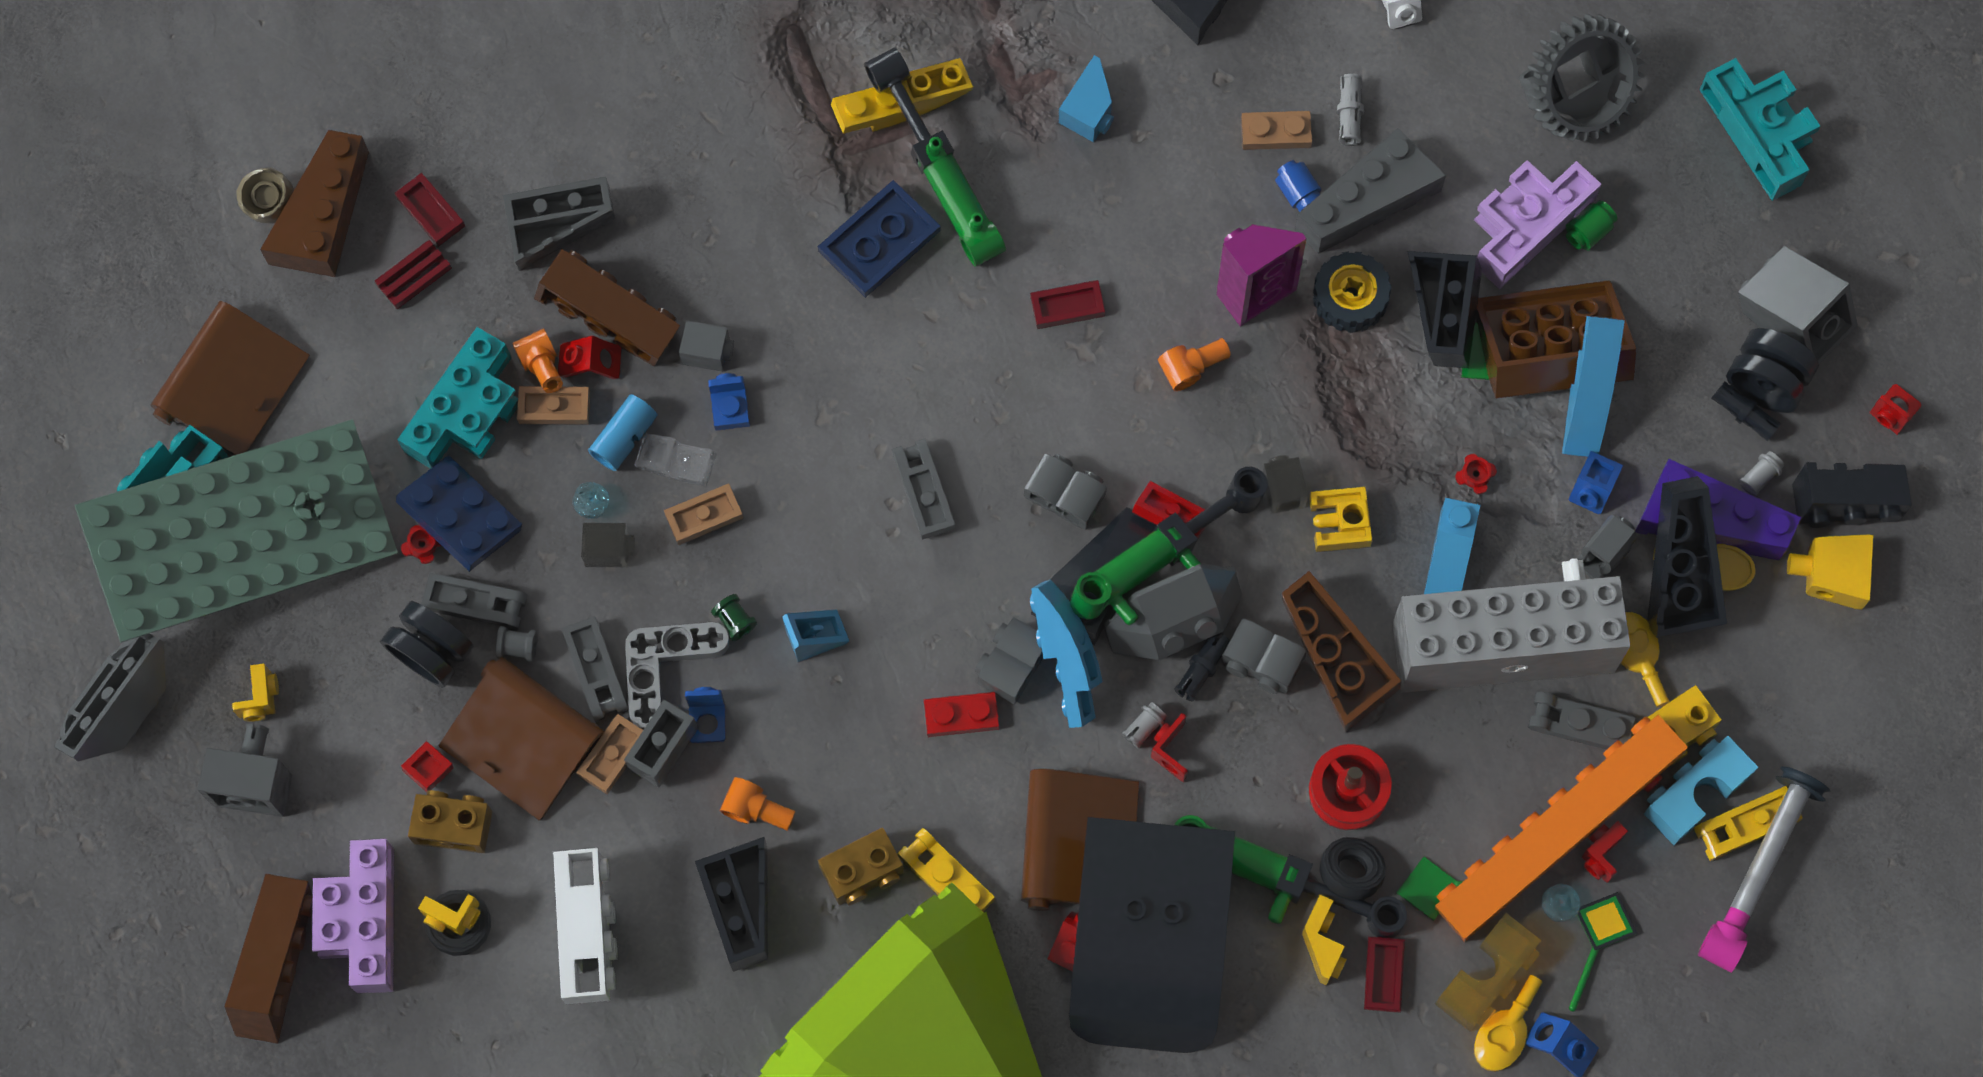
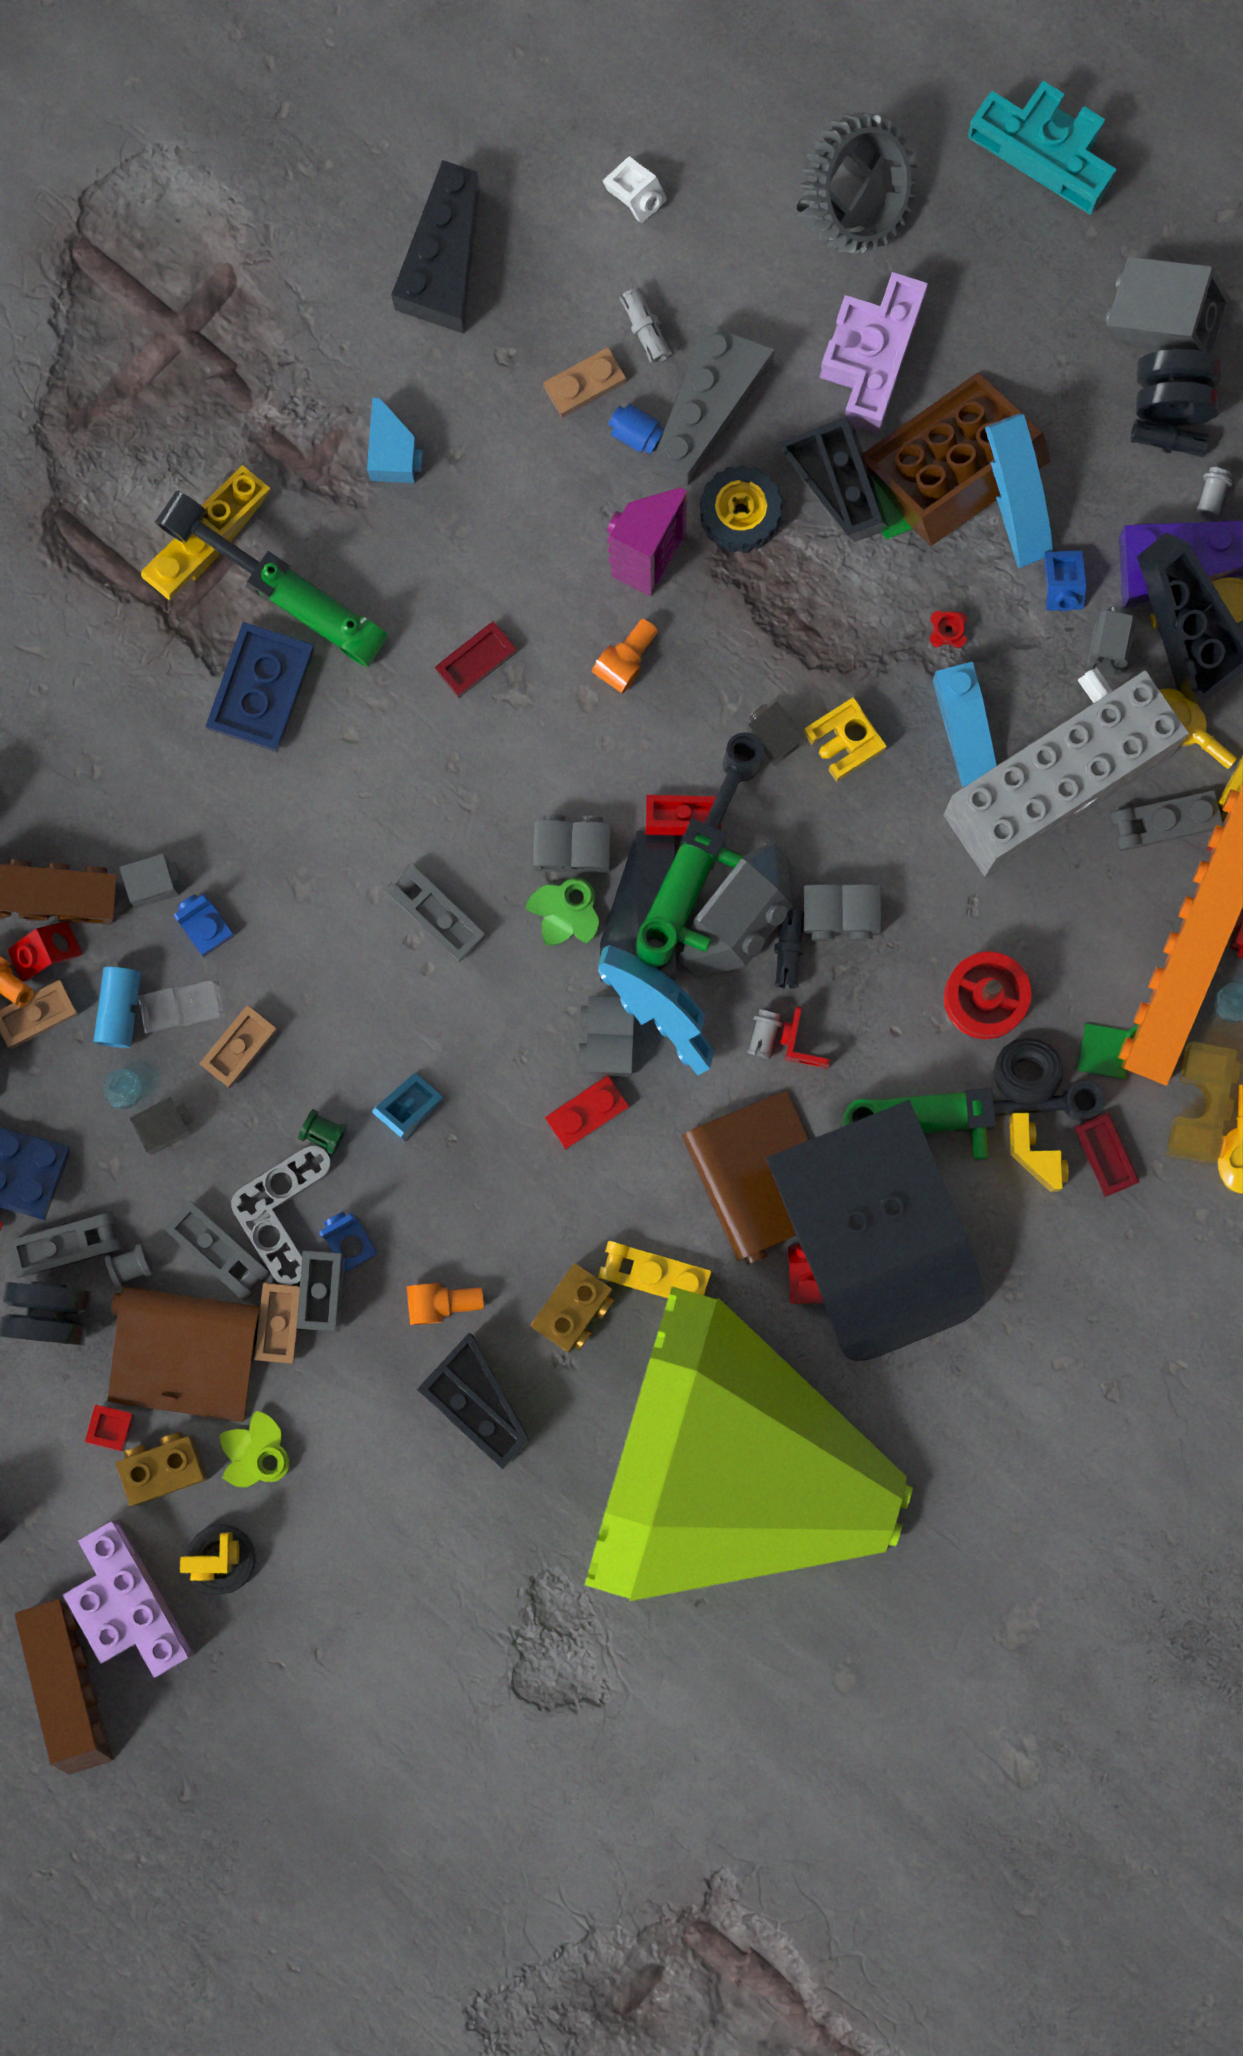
camera: 25 degrees left, 10 degrees up
(531, 847) = (250, 1448): none -> lime plate
(584, 926) = (345, 1505): white piece -> none
(1027, 544) = (561, 915): none -> bright green plate
(1343, 658) = (917, 875): reddish brown wedge -> none
(1591, 225) = (934, 327): green brick -> none

